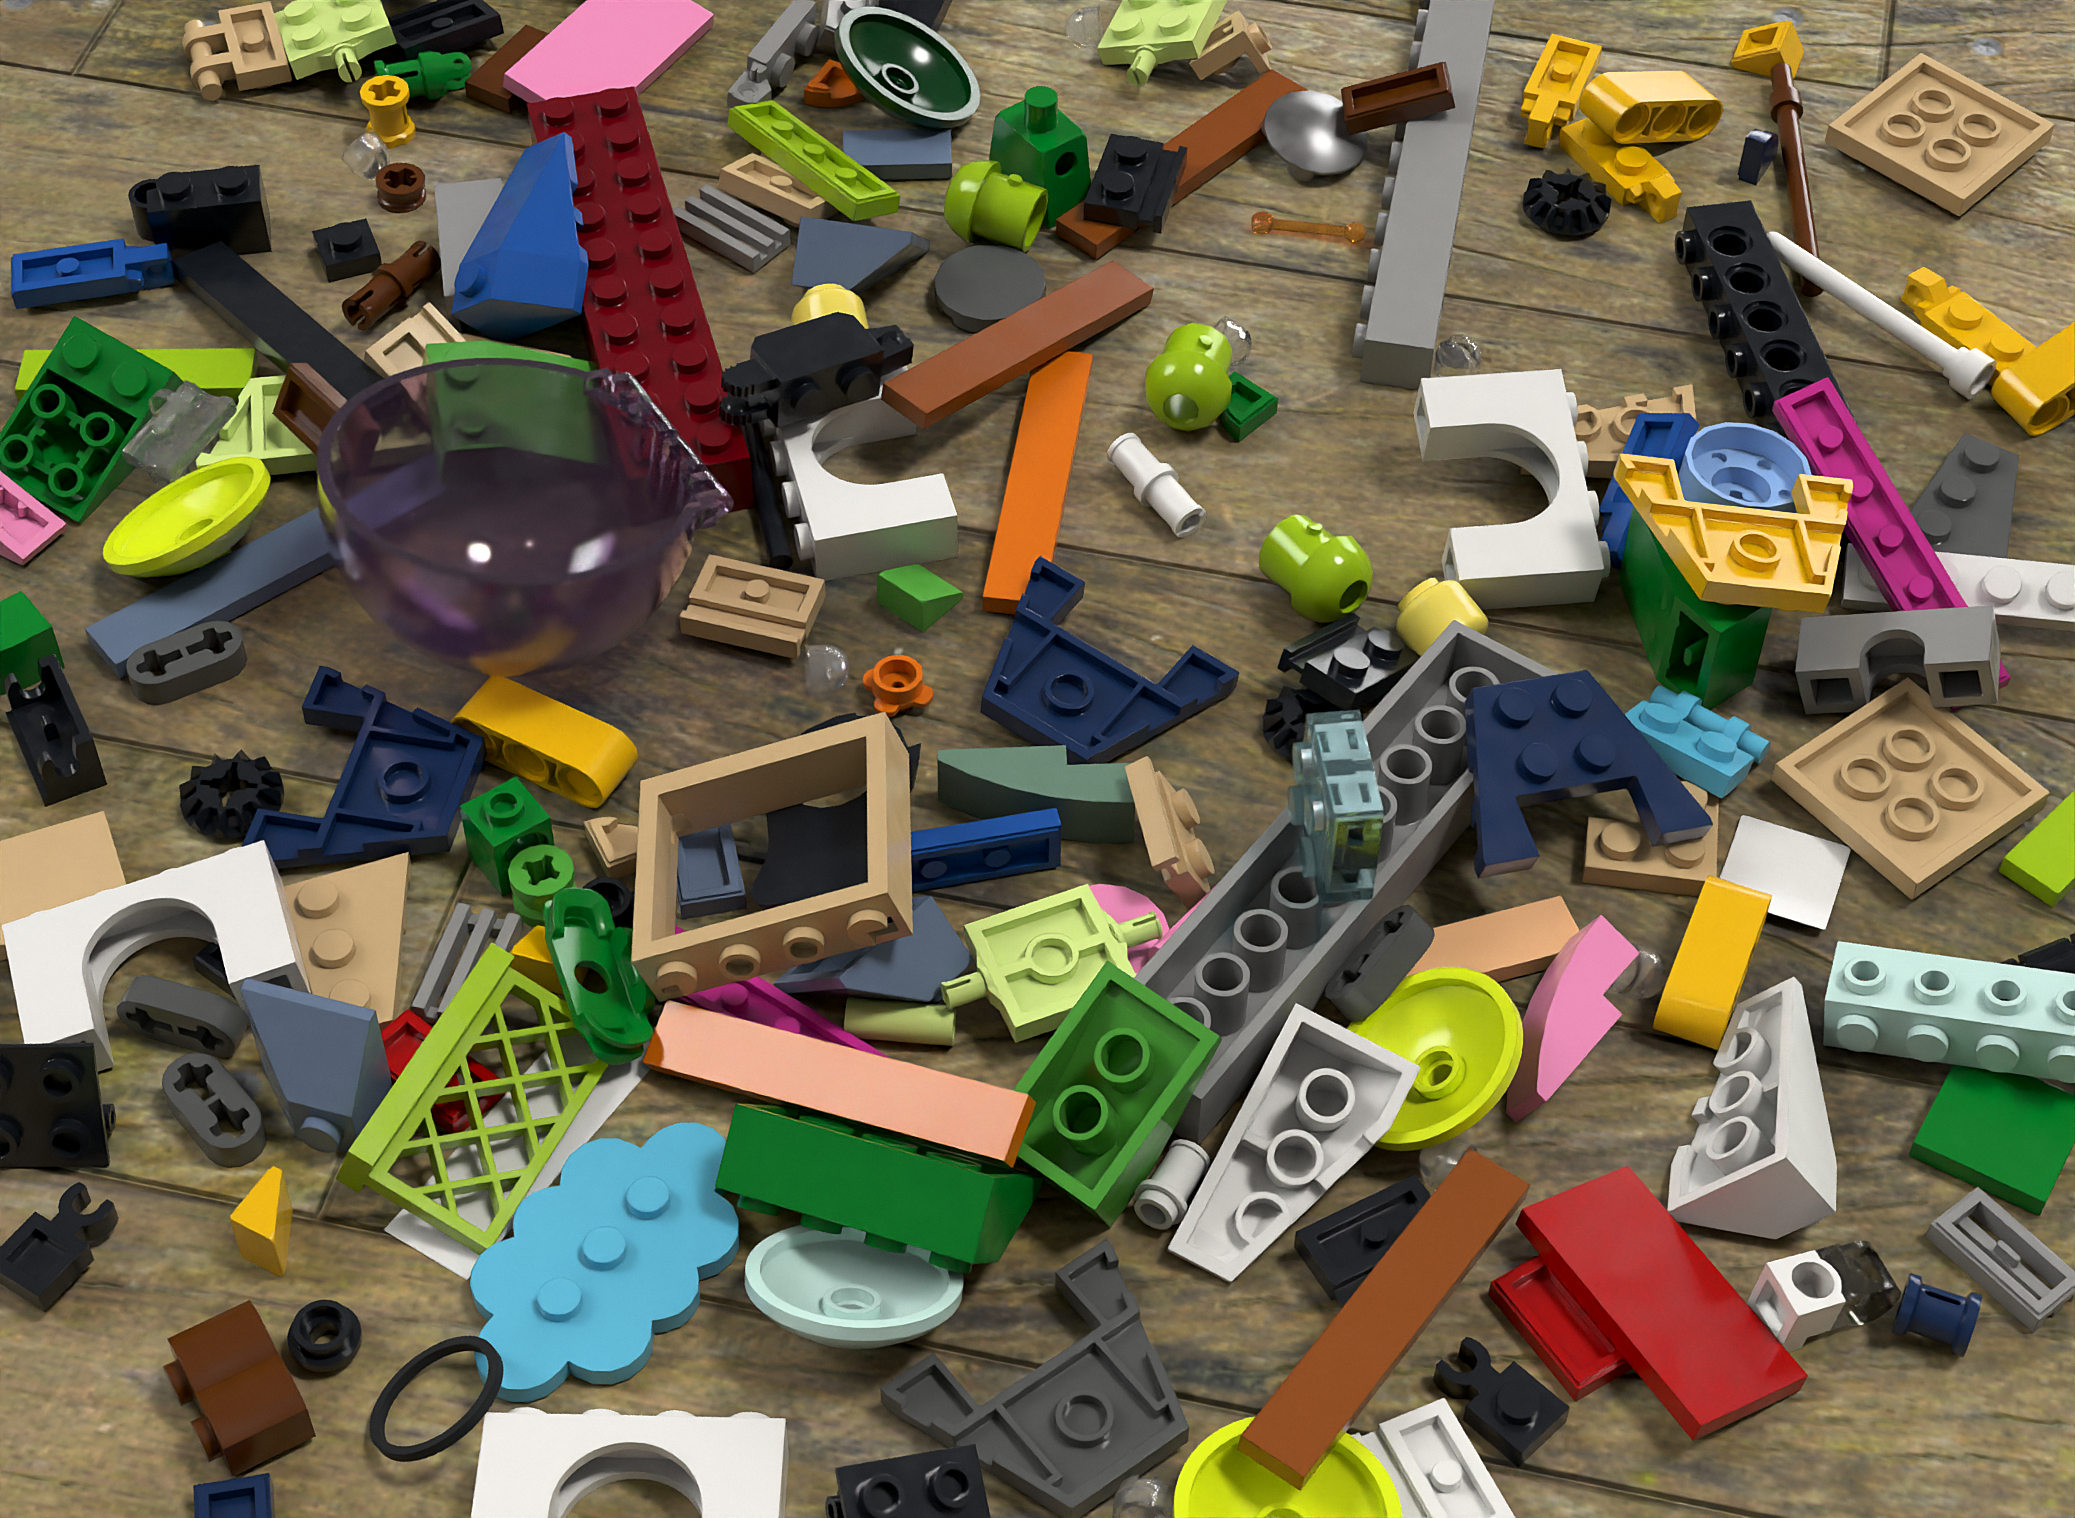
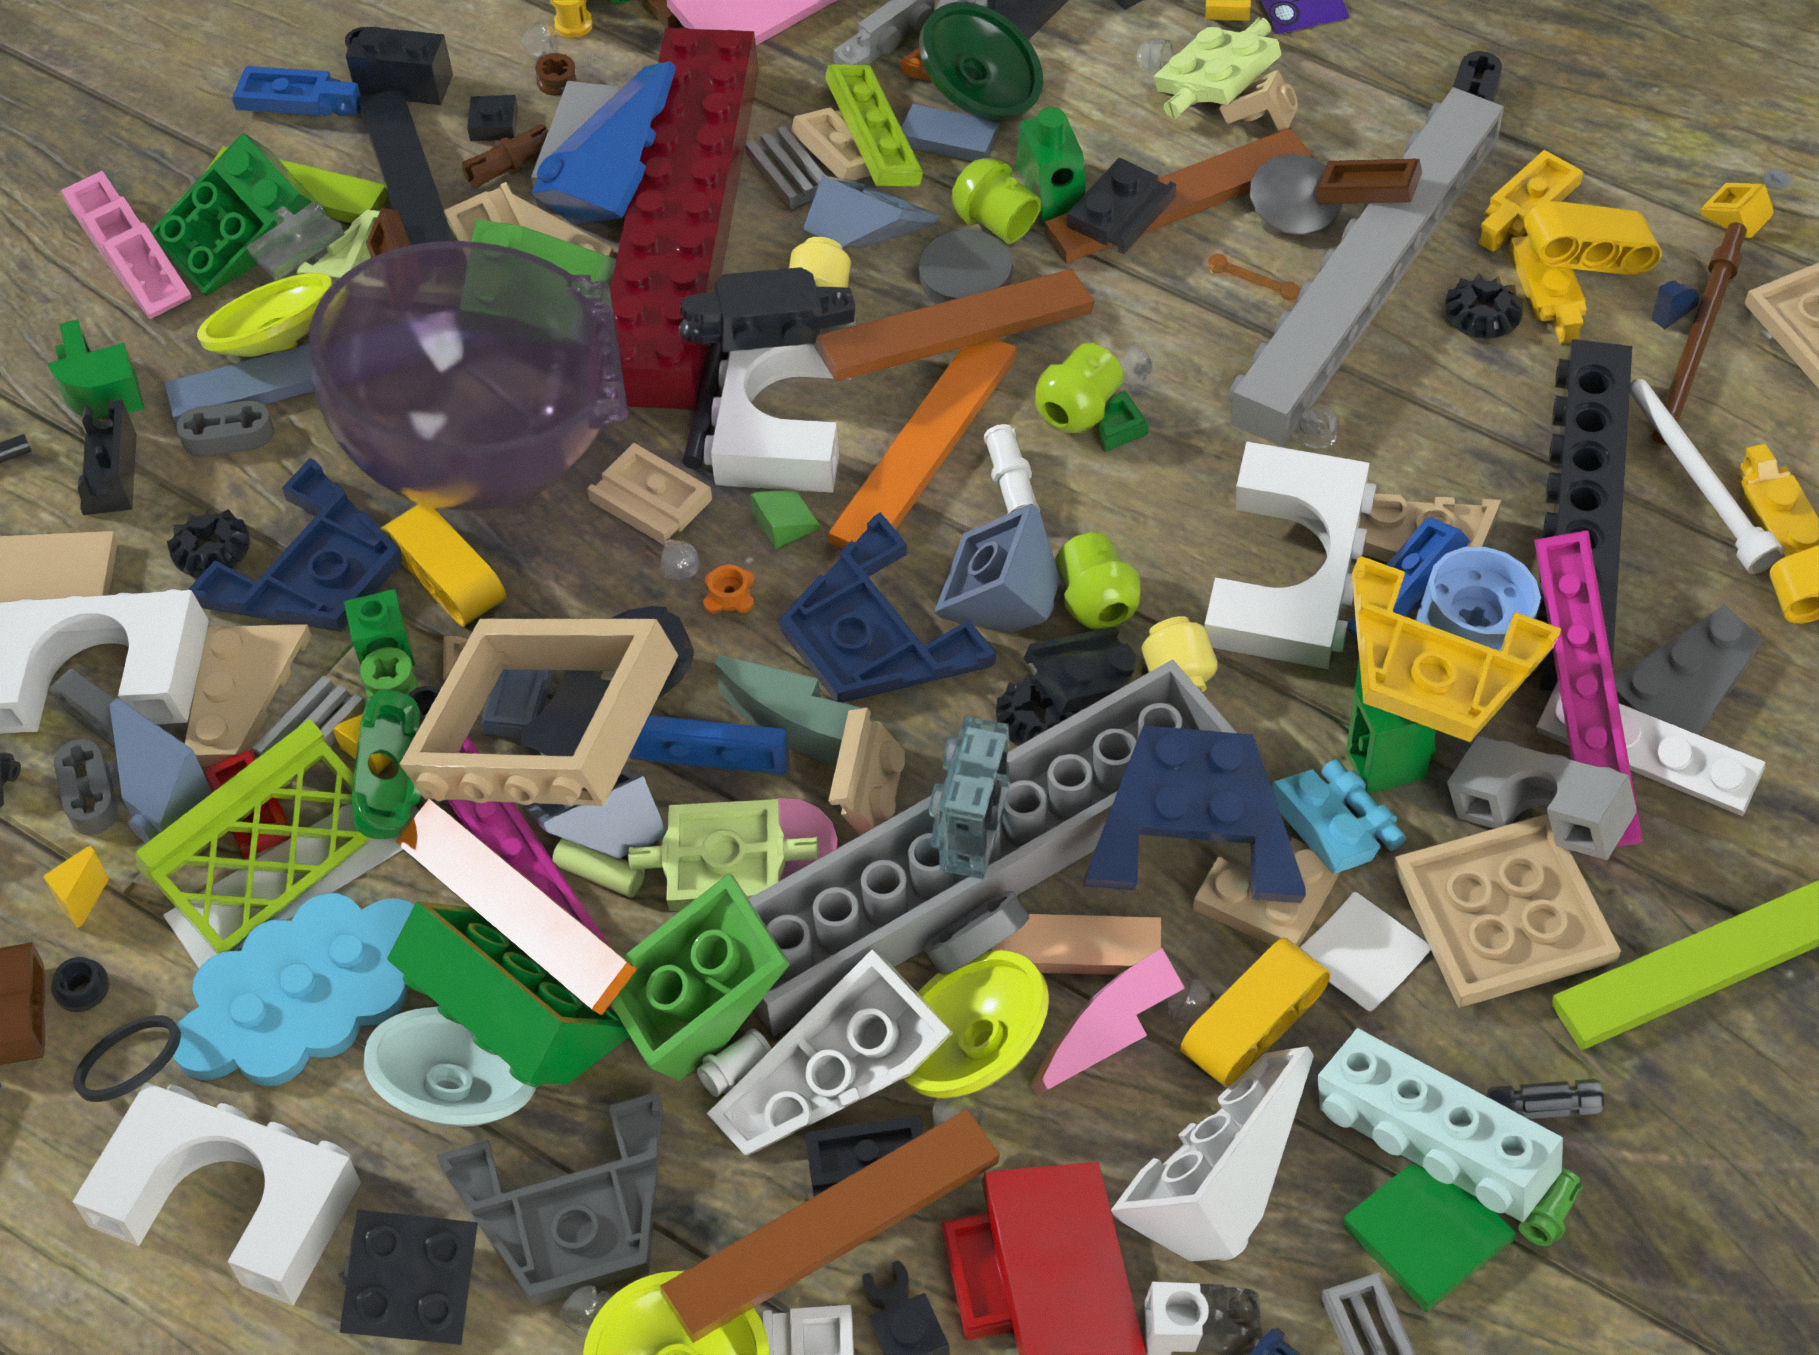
camera: 25 degrees right, 5 degrees up
(1203, 588) = (1002, 575): none -> sand blue slope

